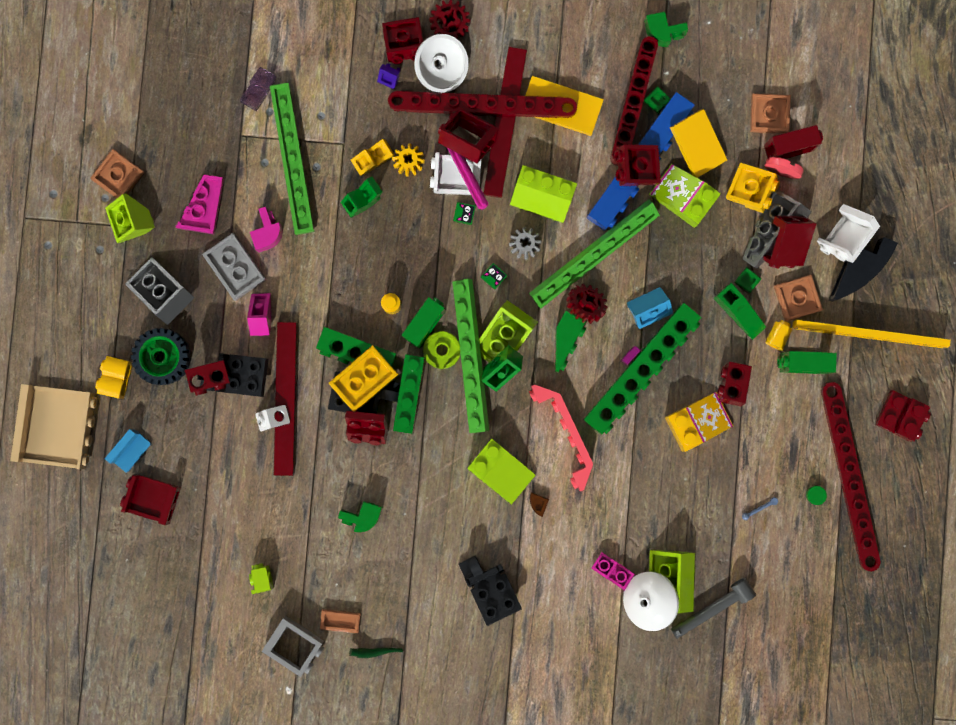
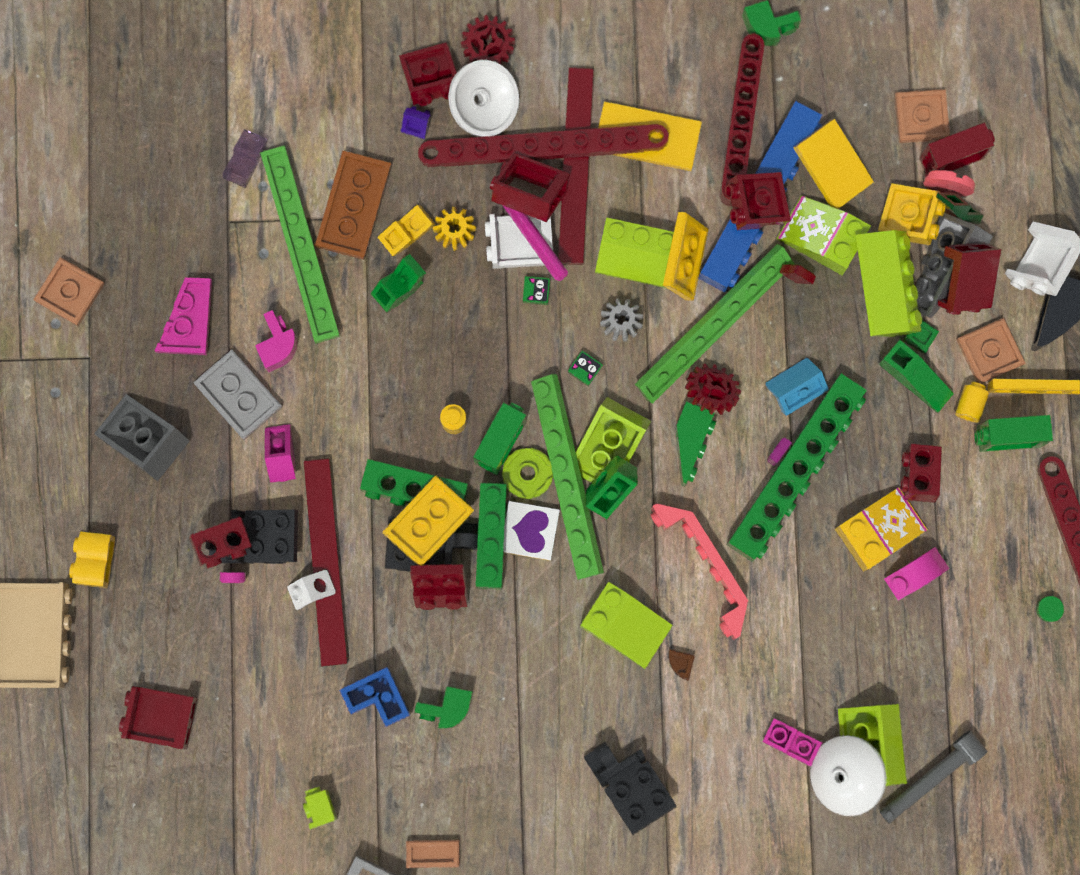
camera: 10 degrees left, 5 degrees down
(128, 218) = (91, 346): lime slope -> none
(128, 450) = (122, 655): dark azure panel -> none
(146, 352) = (134, 516): wheel -> none
(215, 402) = (232, 577): none -> dark pink tile
(315, 499) = (378, 690): none -> blue brick
(335, 133) = (353, 205): none -> dark orange plate
(438, 392) = (530, 530): none -> tile
(578, 201) = (685, 256): none -> yellow tile
(657, 99) = (772, 114): green tile -> none
(661, 223) = (797, 274): none -> dark red tile
(721, 458) = (916, 573): none -> dark pink brick
(728, 239) = (888, 283): none -> lime slope
(773, 501) = (993, 624): sand blue hinge -> none
(789, 187) = (960, 207): none -> dark green slope

